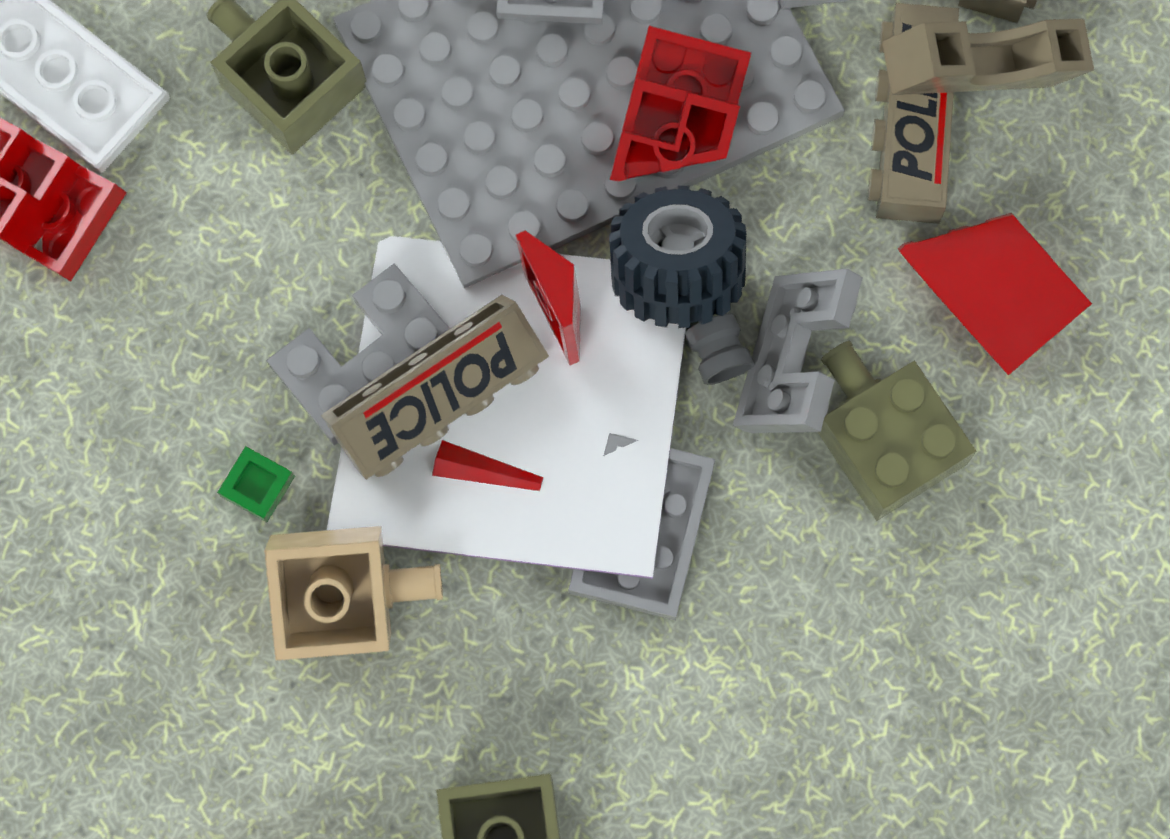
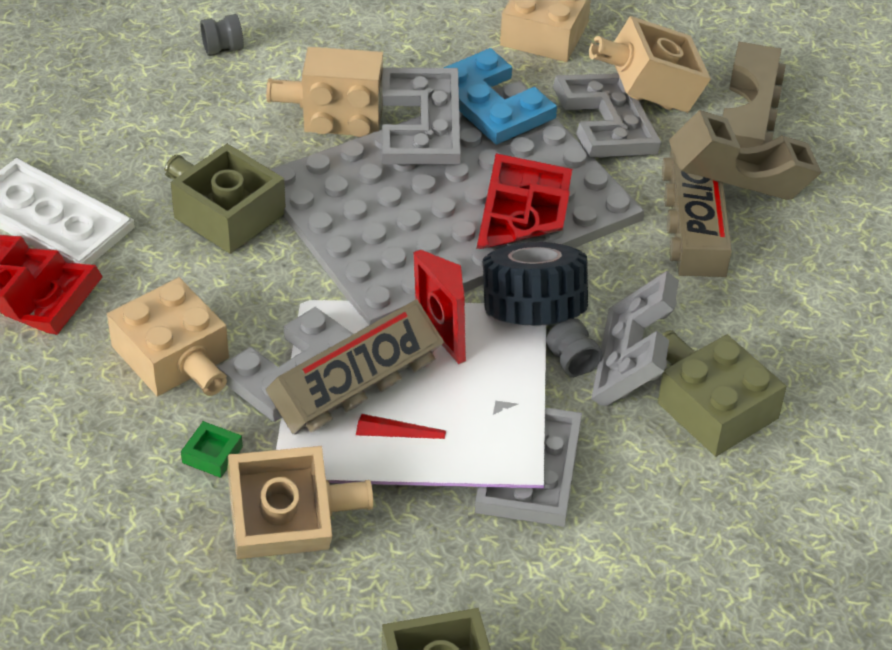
camera: 10 degrees left, 30 degrees down
(210, 313) = (171, 339): none -> tan brick
(999, 286) = (780, 300): red slope -> none

